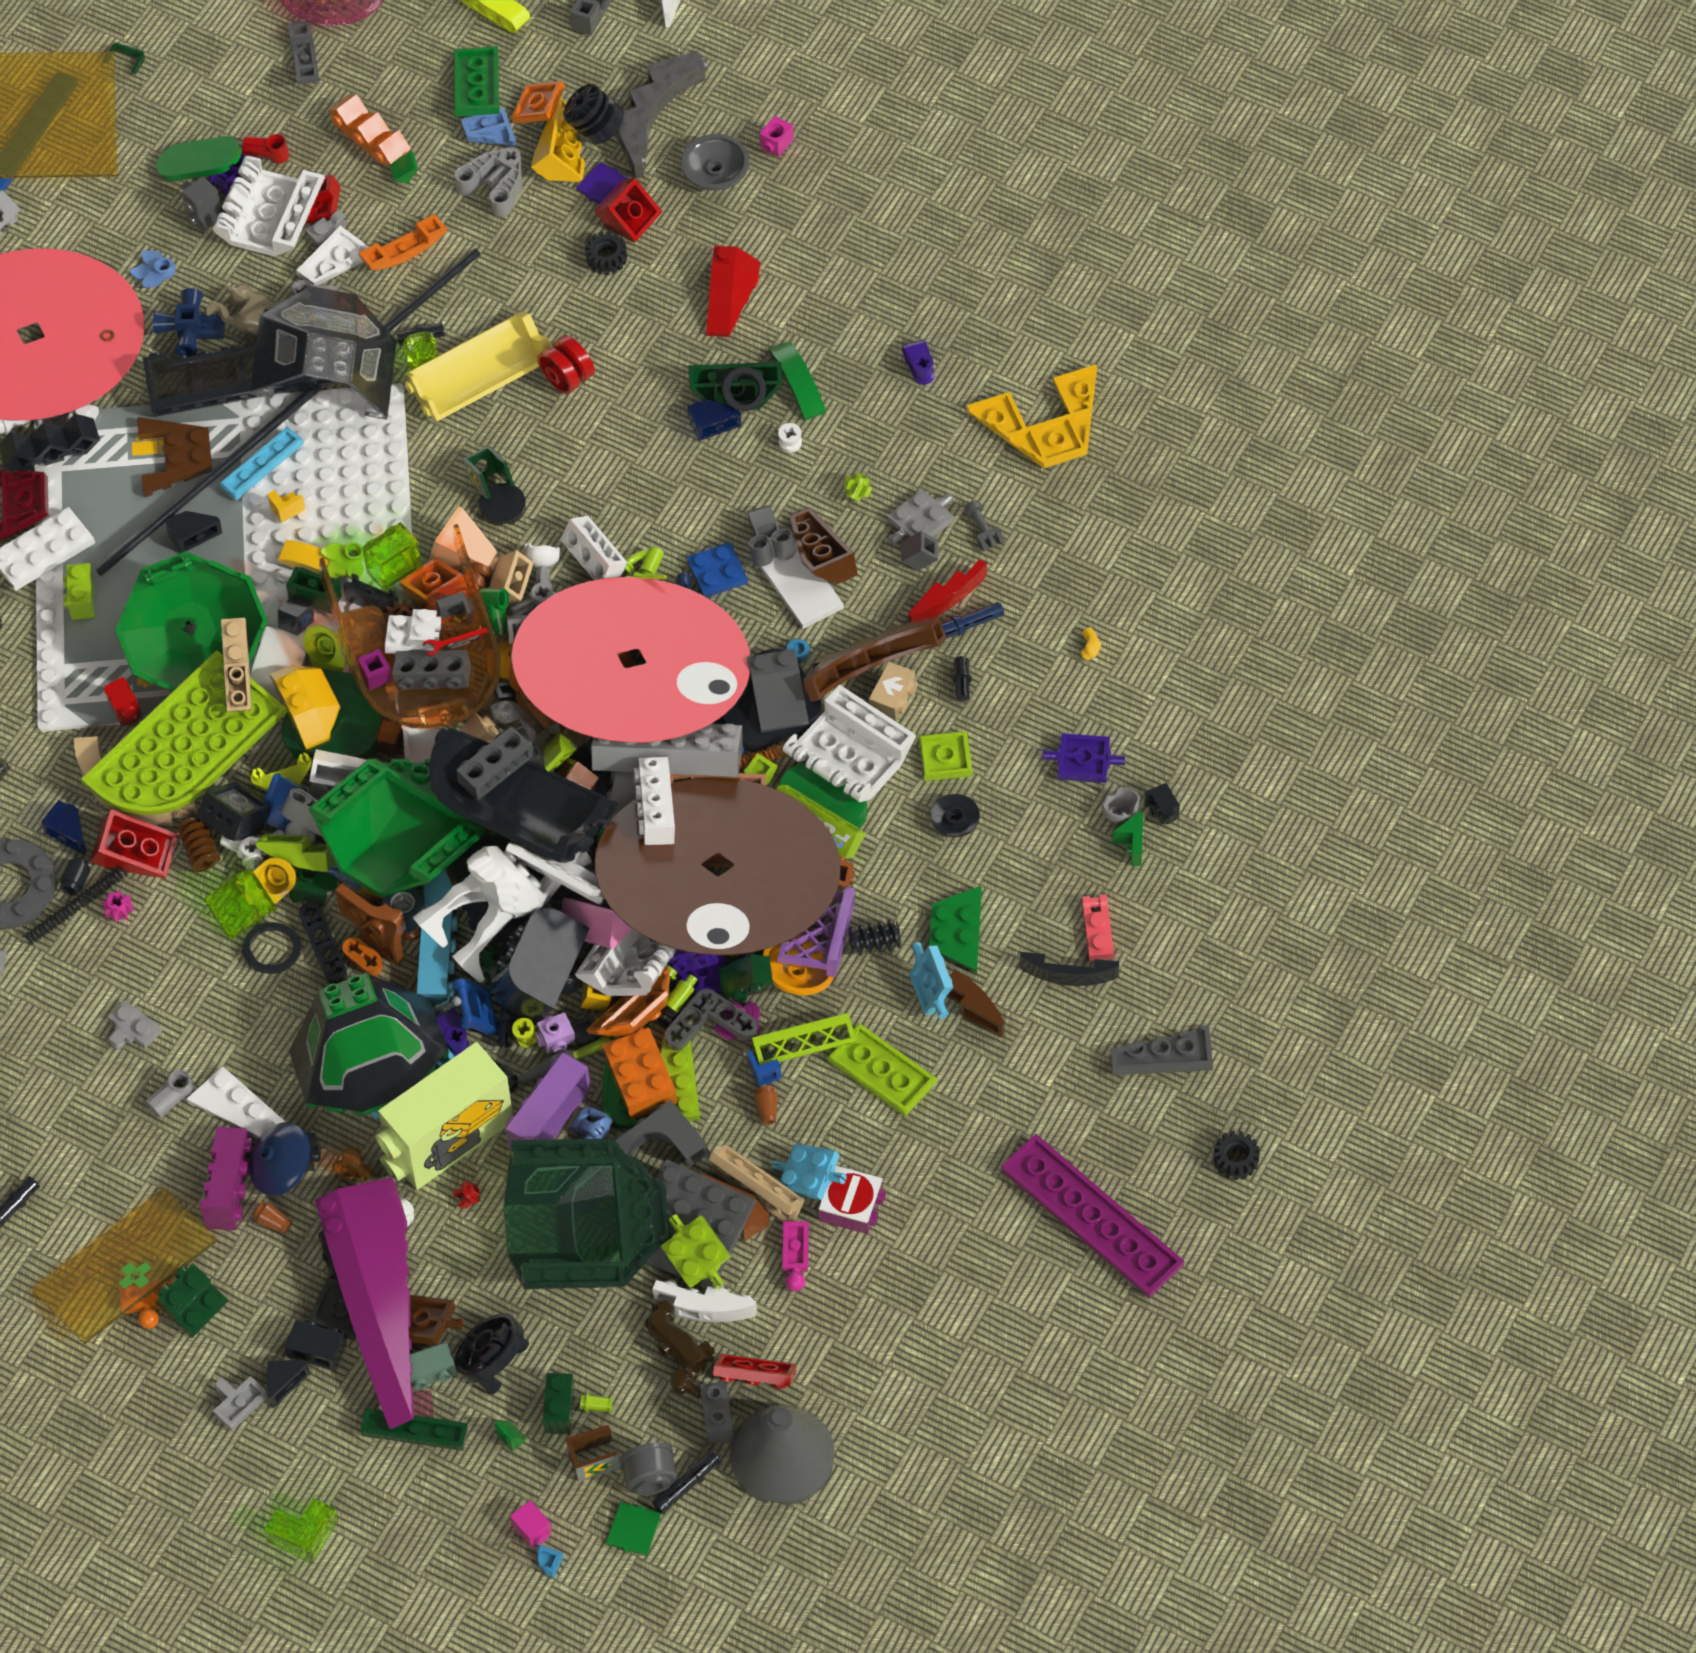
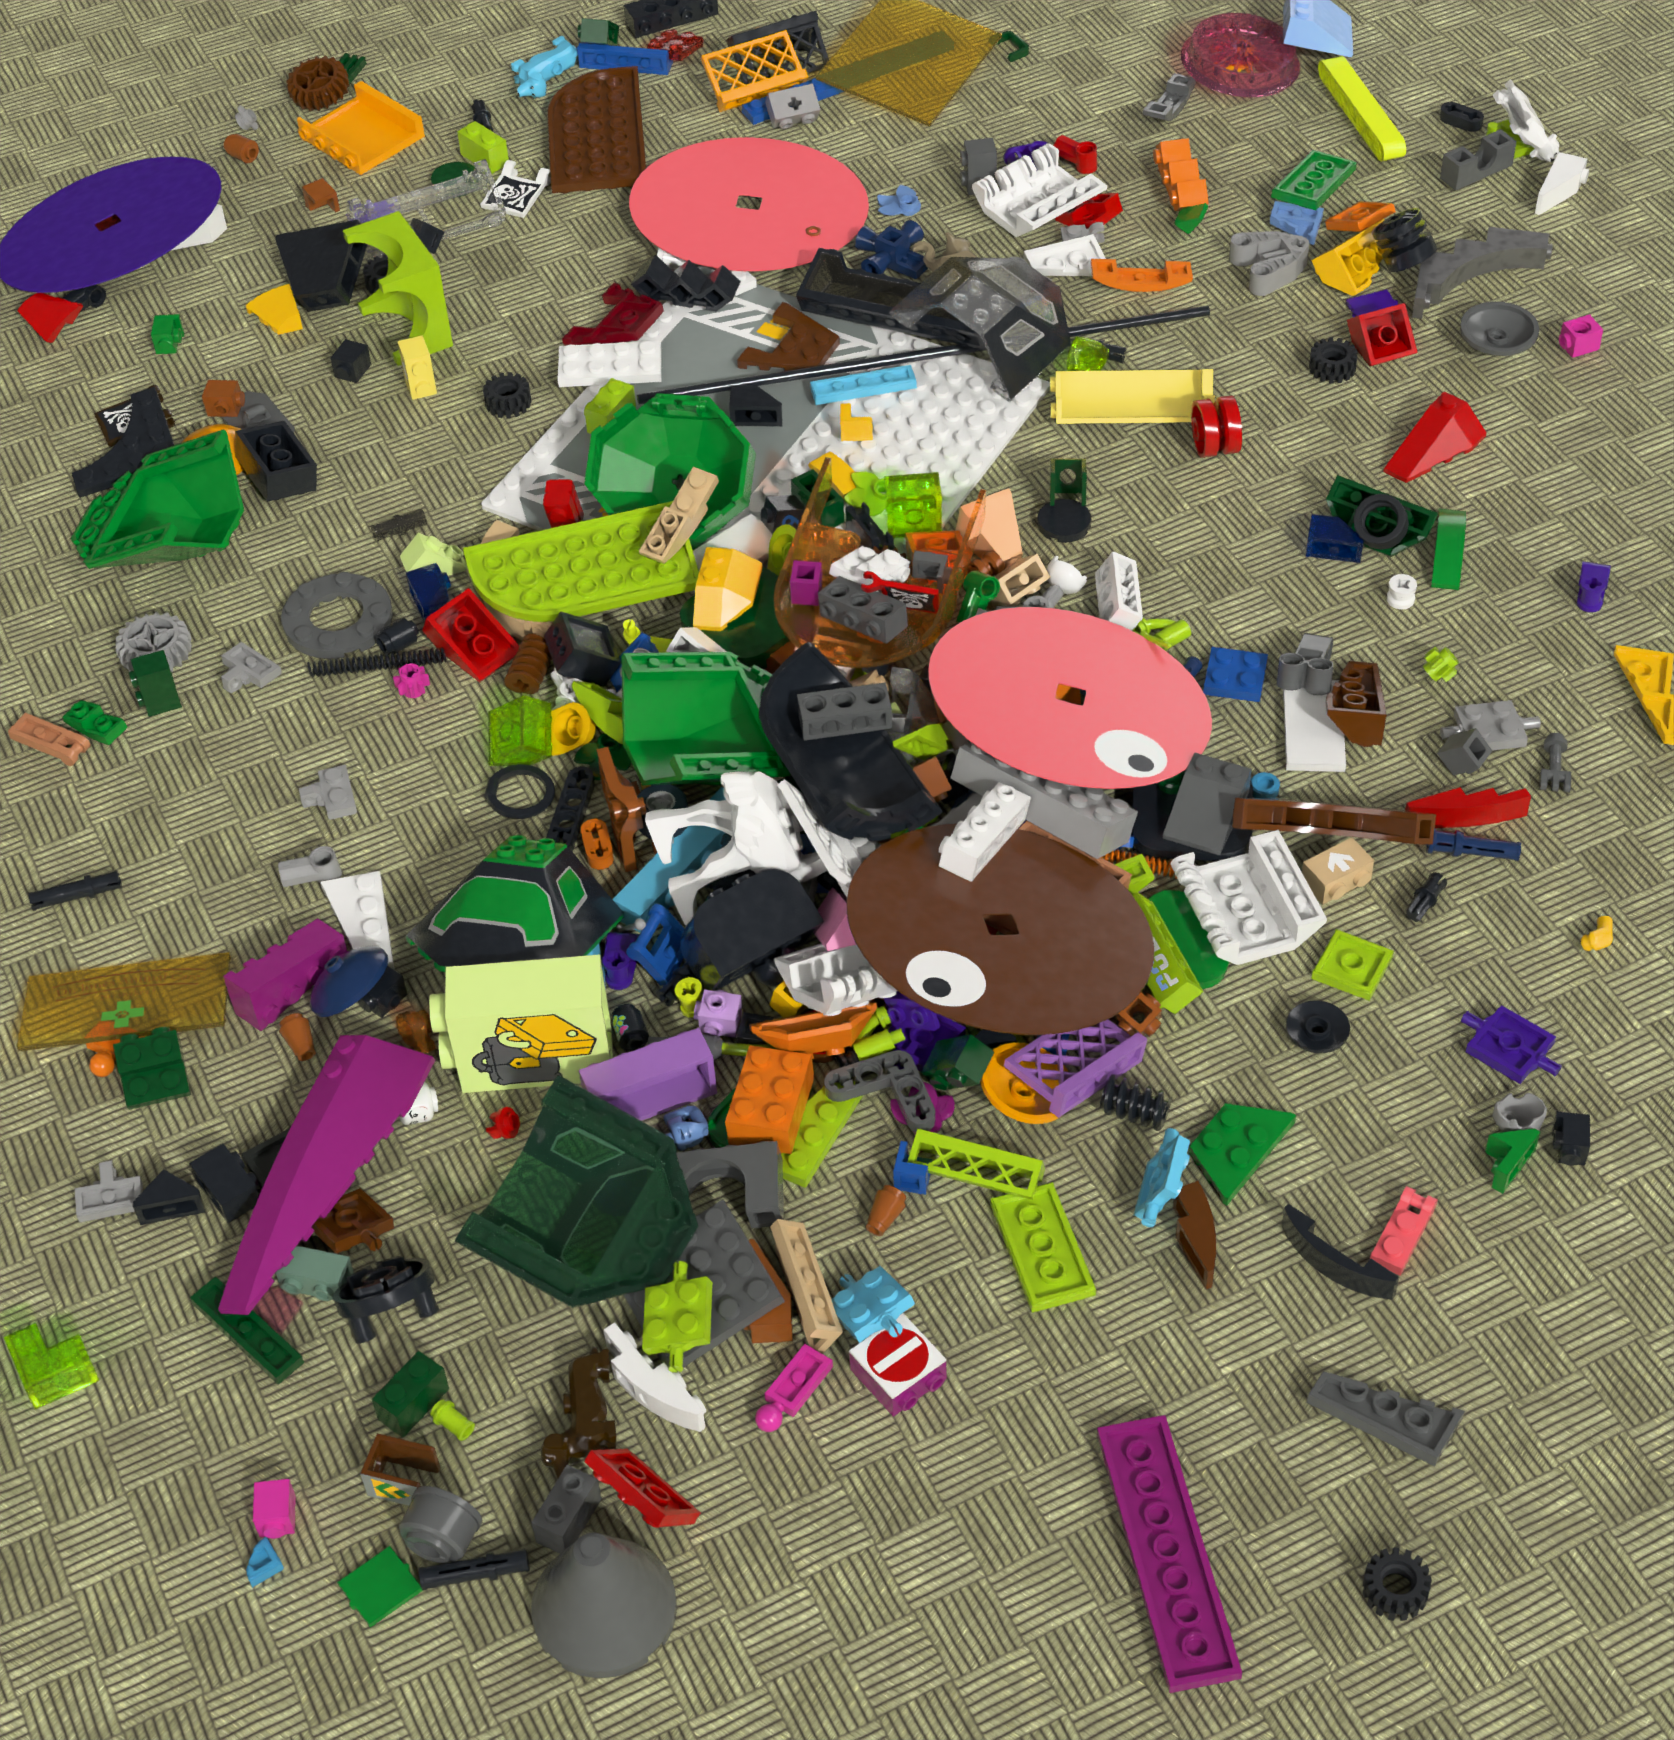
camera: 35 degrees right, 10 degrees down
(43, 795) = (429, 550): none -> yellowish green slope
(198, 158) = (1010, 134): green tile -> none
(509, 1434) = (338, 1395): green slope -> none

